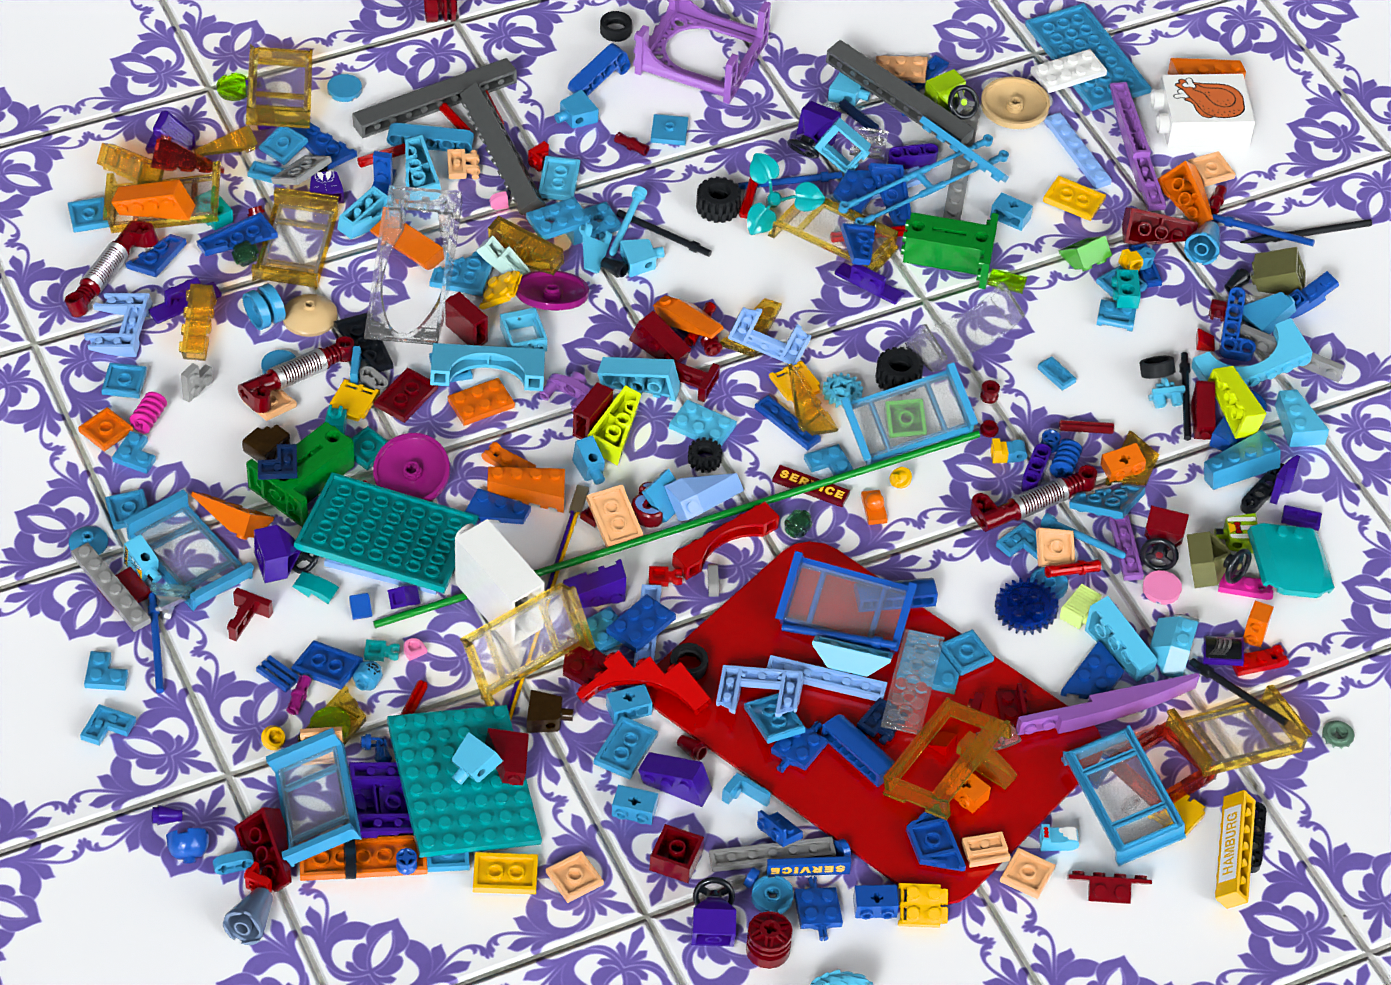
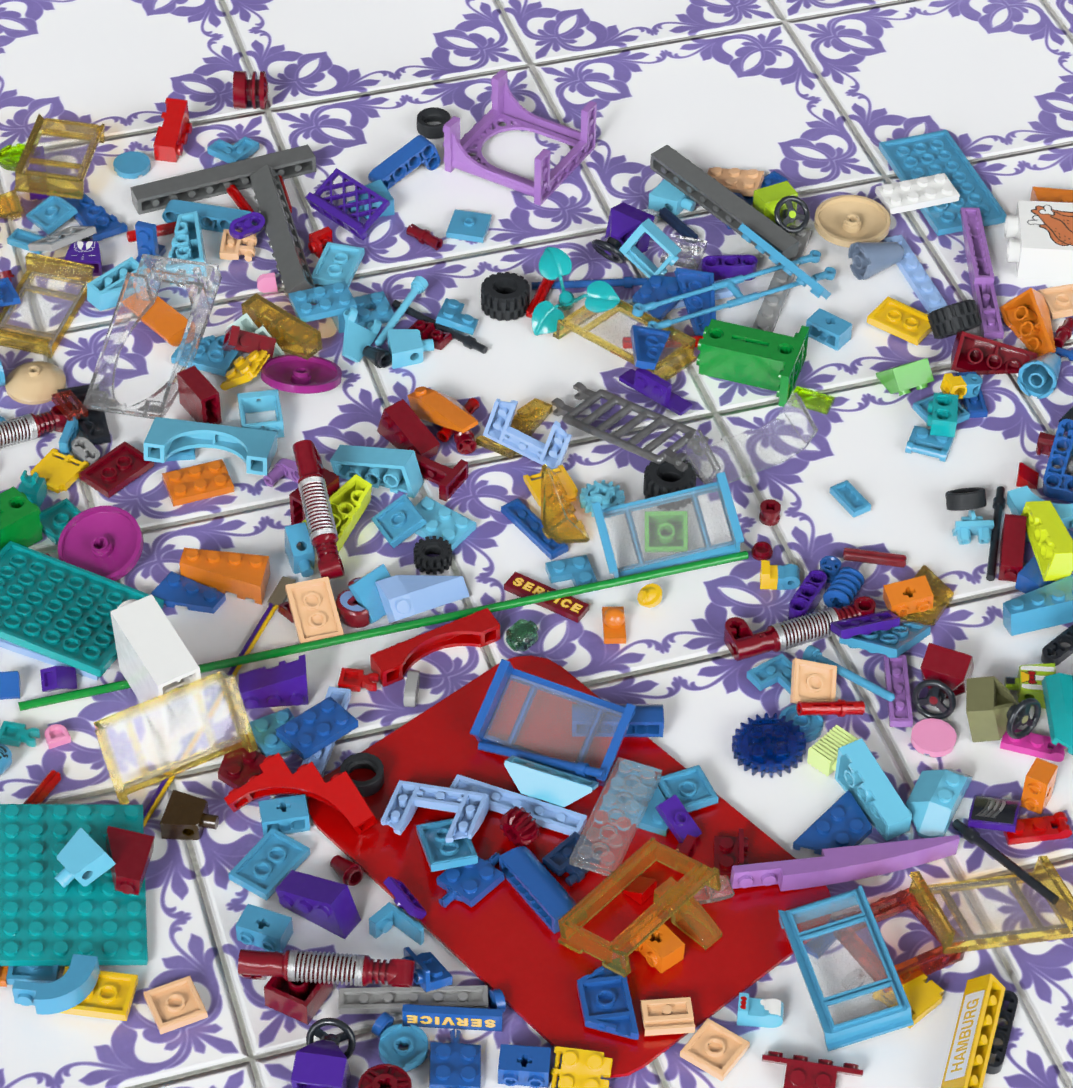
camera: 10 degrees right, 5 degrees down
(349, 338) = (66, 406): none -> clear red tile
(377, 51) = (174, 131): none -> red wedge
(436, 70) = (232, 153): none -> dark azure plate
(468, 146) = (245, 225): none -> dark purple plate
(479, 877) = (62, 993): none -> dark azure arch
(497, 263) = (247, 342): none -> dark red bracket
(505, 457) = (208, 540): orange plate -> none
(545, 125) = (341, 217): none -> dark purple fence
(595, 402) = (312, 487): none -> dark red piece
(658, 241) = (428, 331): none -> dark red slope
(669, 425) = (399, 520): none -> dark azure tile
(674, 224) = (451, 317): none -> dark azure plate
(702, 835) = (322, 966): none -> dark red piece
(748, 768) = (405, 898): none -> dark purple plate
(815, 293) = (590, 397): none -> flat silver bar
(833, 697) = (519, 826): none -> dark red gear
(964, 679) = (678, 818): none -> dark purple plate
(1040, 138) = (873, 257): none -> sand blue cone
(1090, 490) = (865, 624): none -> dark purple plate
(1122, 195) = (954, 319): none -> black tyre

